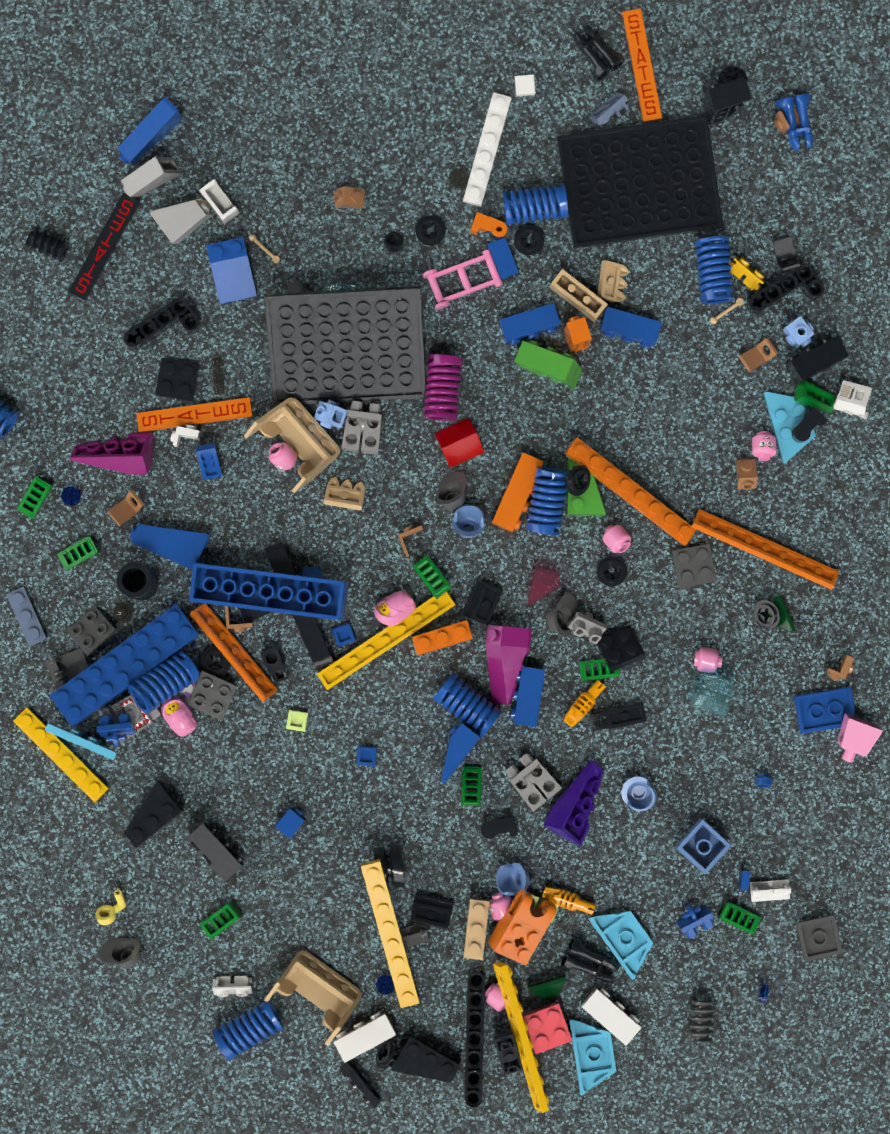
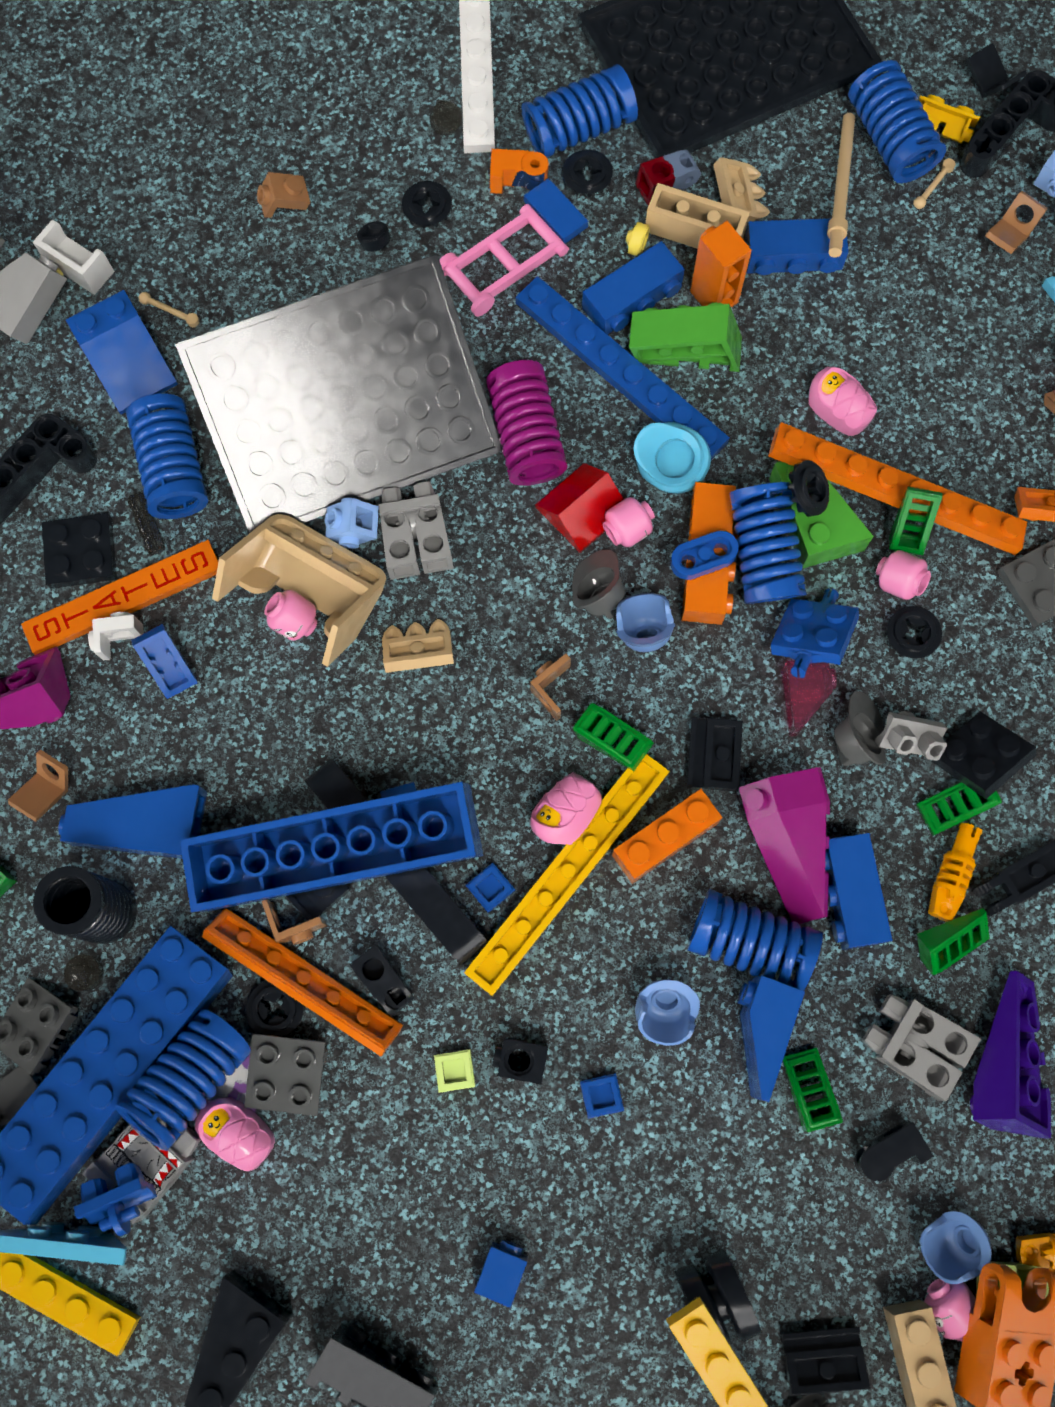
camera: 10 degrees left, 10 degrees down
(244, 340) = (166, 456): none -> blue piece
(340, 726) = (537, 1055): none -> black brick
(411, 725) = (667, 1012): none -> medium blue helmet
(480, 461) = (628, 522): none -> bright pink head
(507, 368) = (614, 362): none -> blue plate
(511, 496) = (702, 555): none -> blue plate
(516, 431) = (671, 456): none -> medium azure piece
(542, 293) = (637, 238): none -> light yellow tile
(556, 555) = (815, 632): none -> blue plate
(563, 736) = (945, 945): none -> green slope
(573, 258) = (673, 170): none -> leg
(622, 428) = (841, 401): none -> bright pink piece
(629, 515) = (914, 543): none -> green slope
(653, 328) = (838, 224): none -> tan bar

